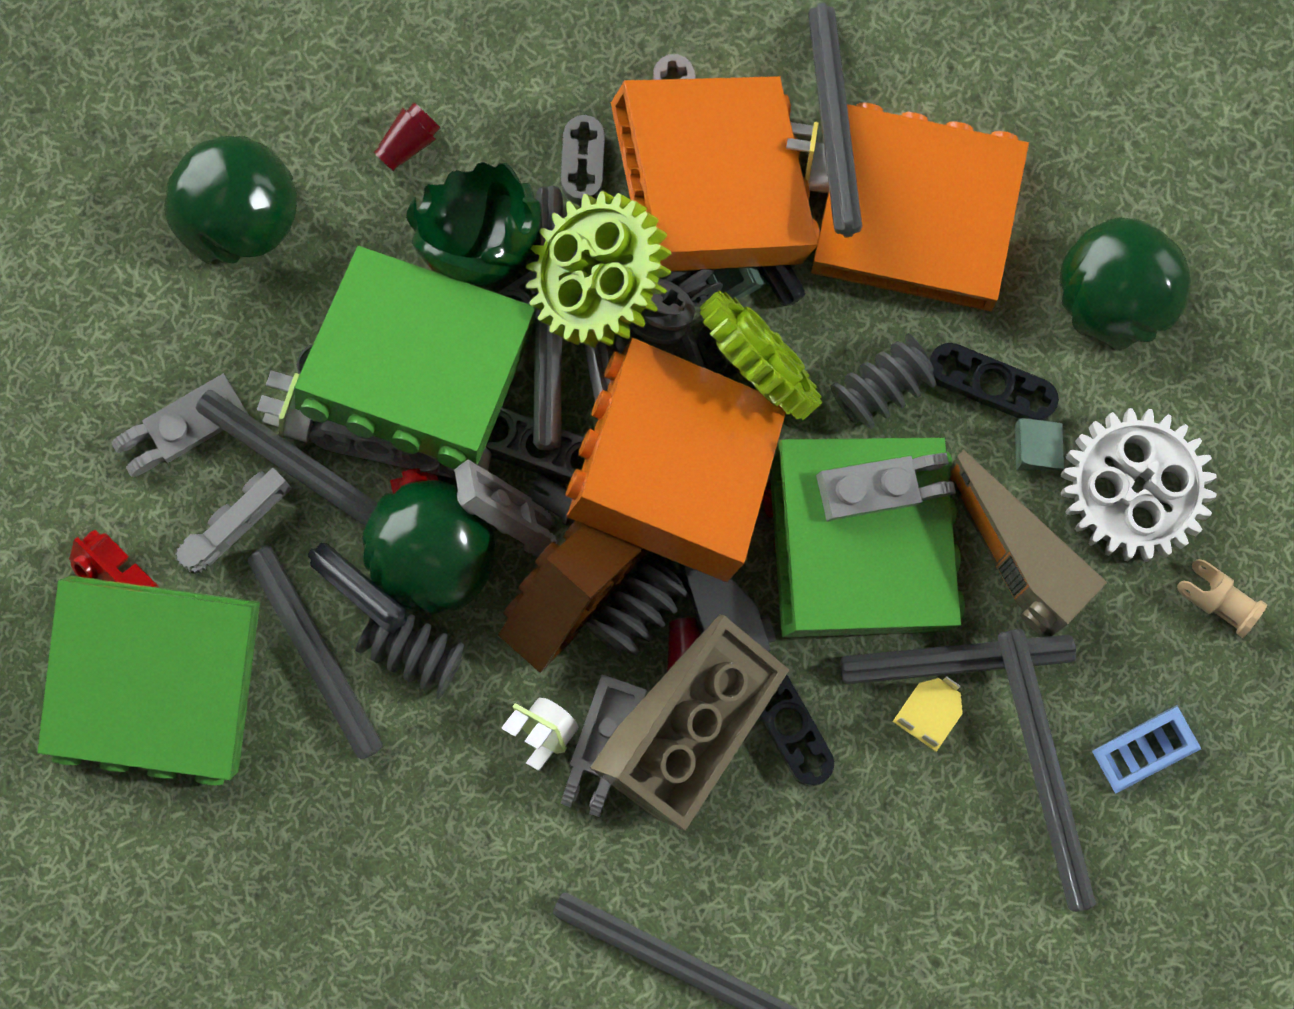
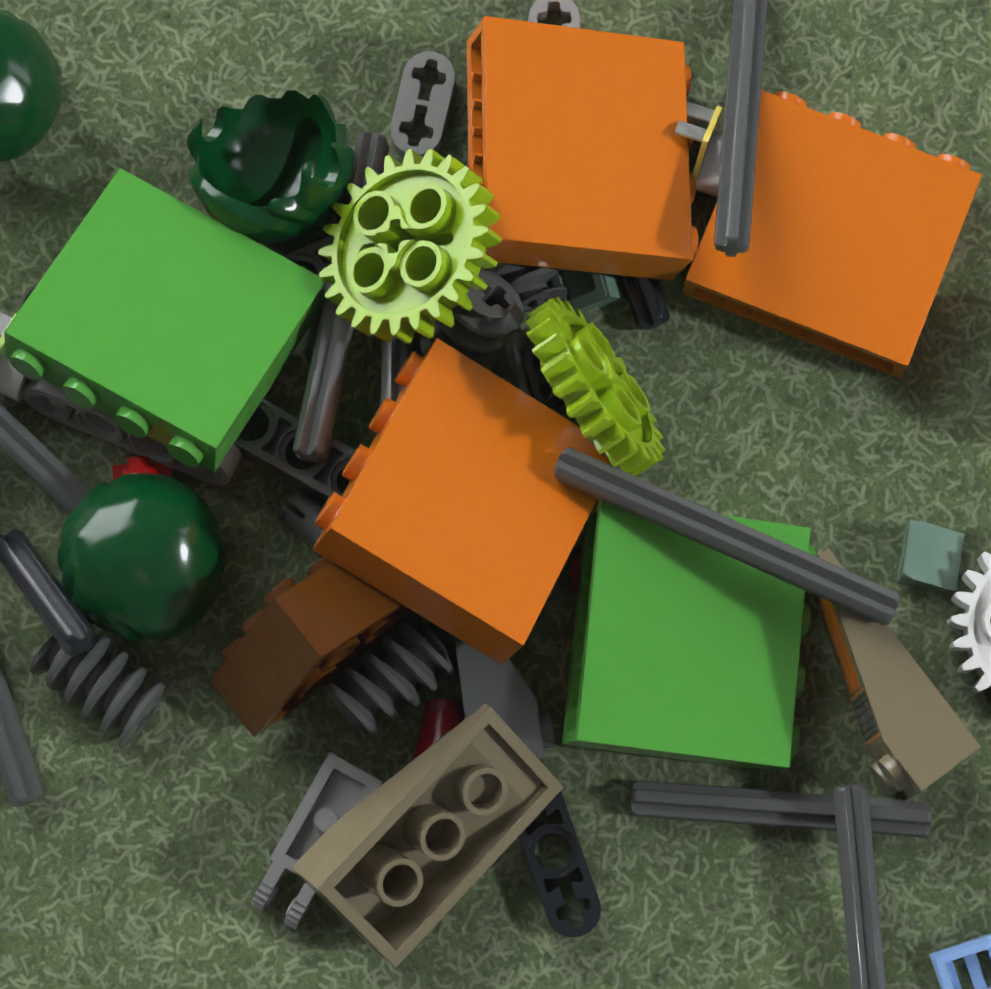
camera: 15 degrees right, 0 degrees up
(406, 136) = (210, 44): dark red cone -> none
(503, 507) = (242, 523): light grey hinge -> none
(547, 728) = (248, 805): piece -> none
(880, 486) = (705, 579): light grey hinge -> none
(884, 382) = (749, 447): dark grey piece -> none
(884, 453) = (727, 536): none -> dark grey axle
(931, 711) = (734, 870): light yellow piece -> none
(1030, 382) = (882, 444): black beam -> none

